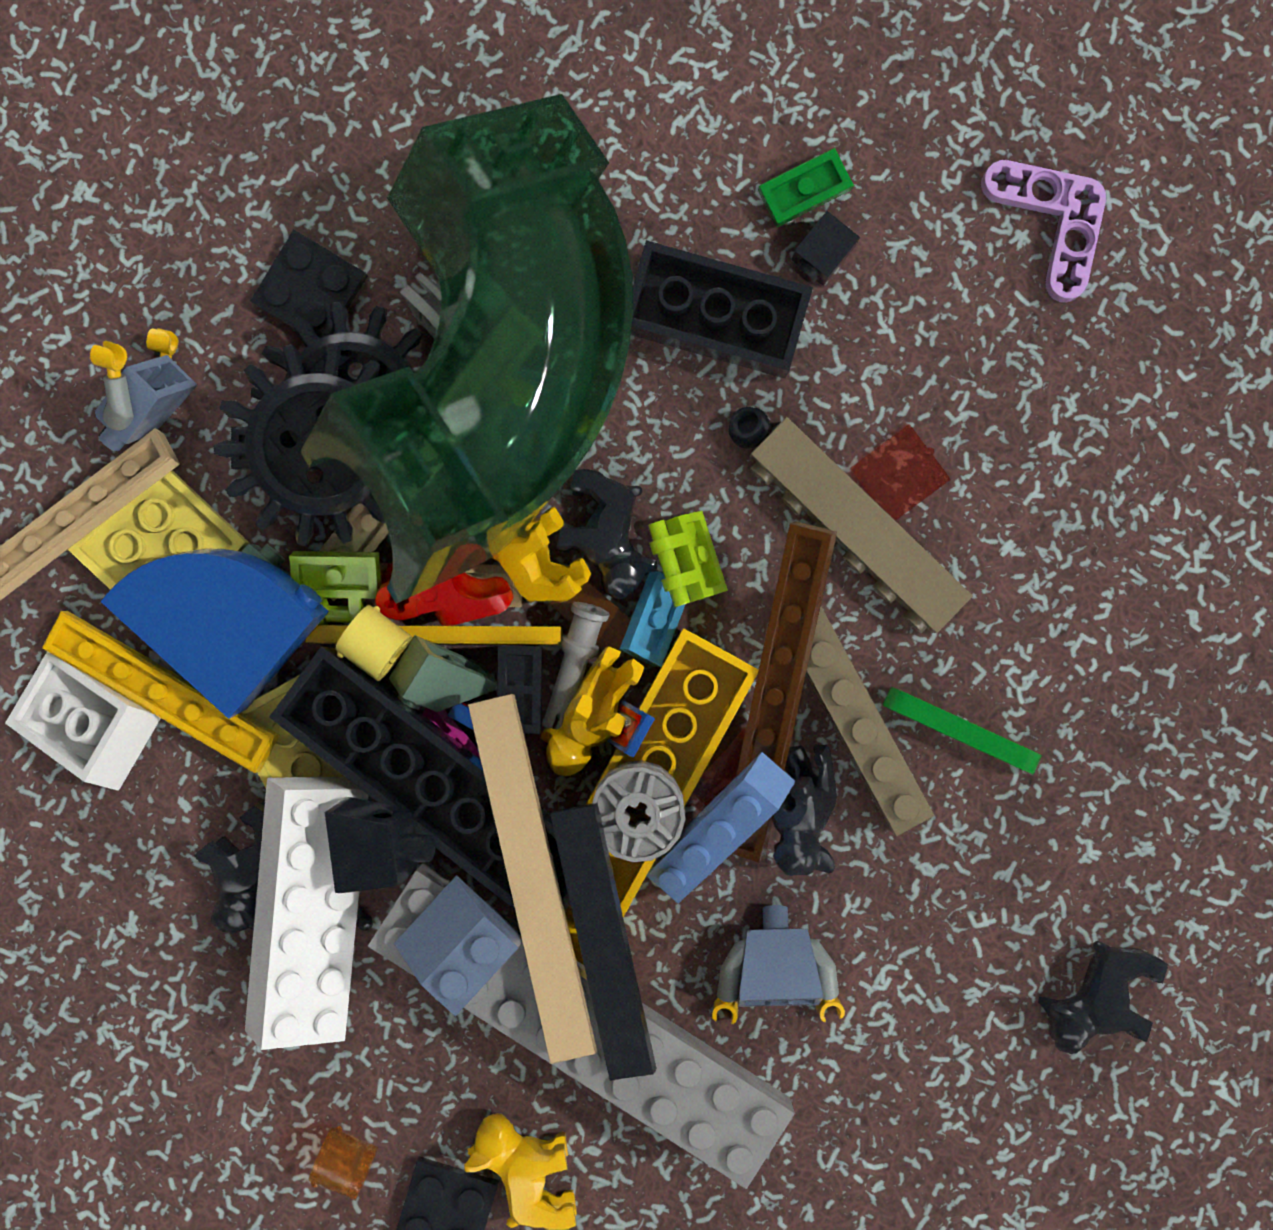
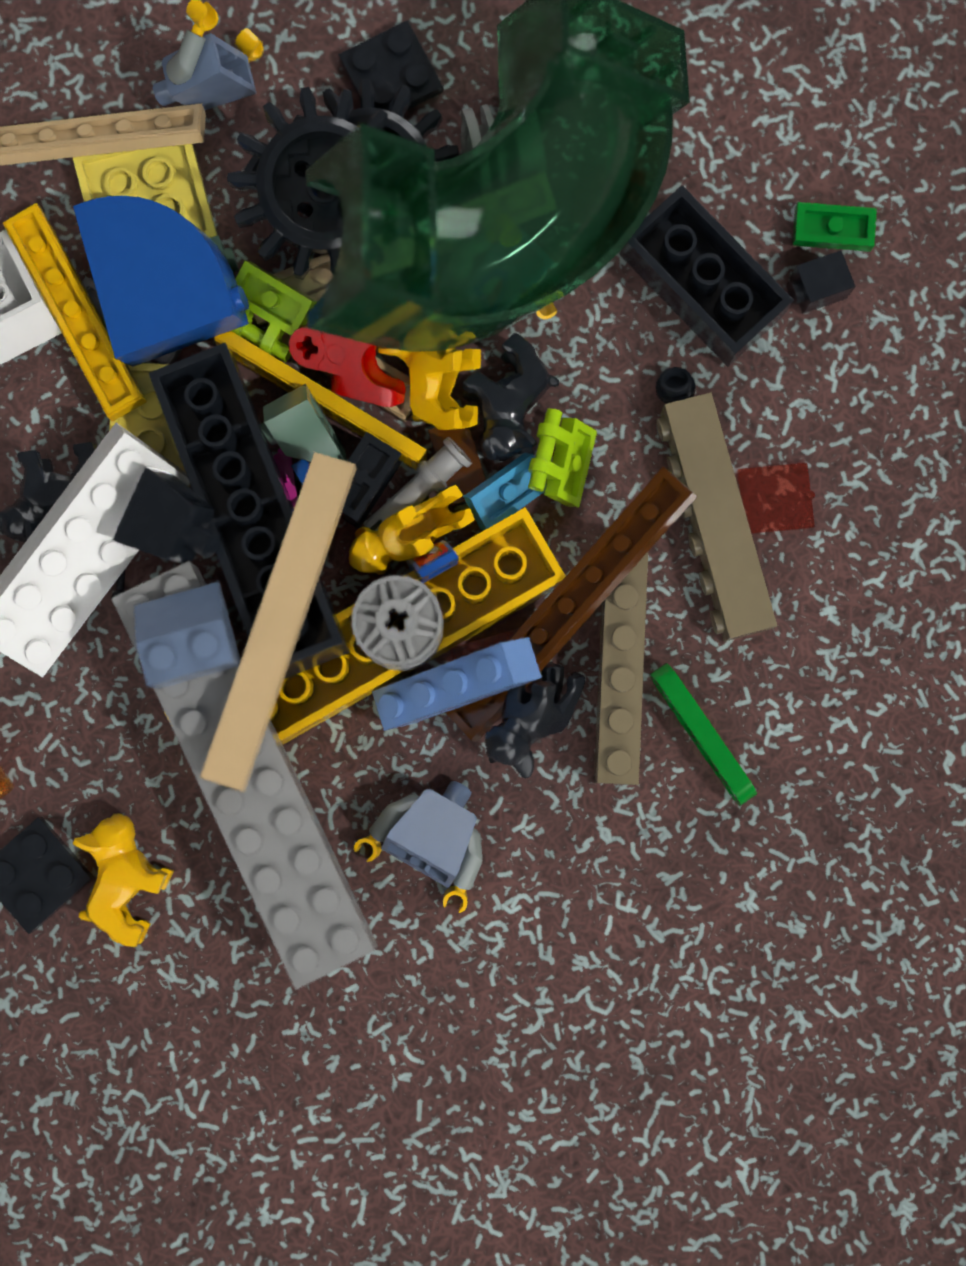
camera: 35 degrees right, 5 degrees down
(373, 642) = (268, 366): light yellow piece -> none
(603, 941) = (305, 707): black tile -> none
(1103, 999) = (688, 1029): black animal -> none

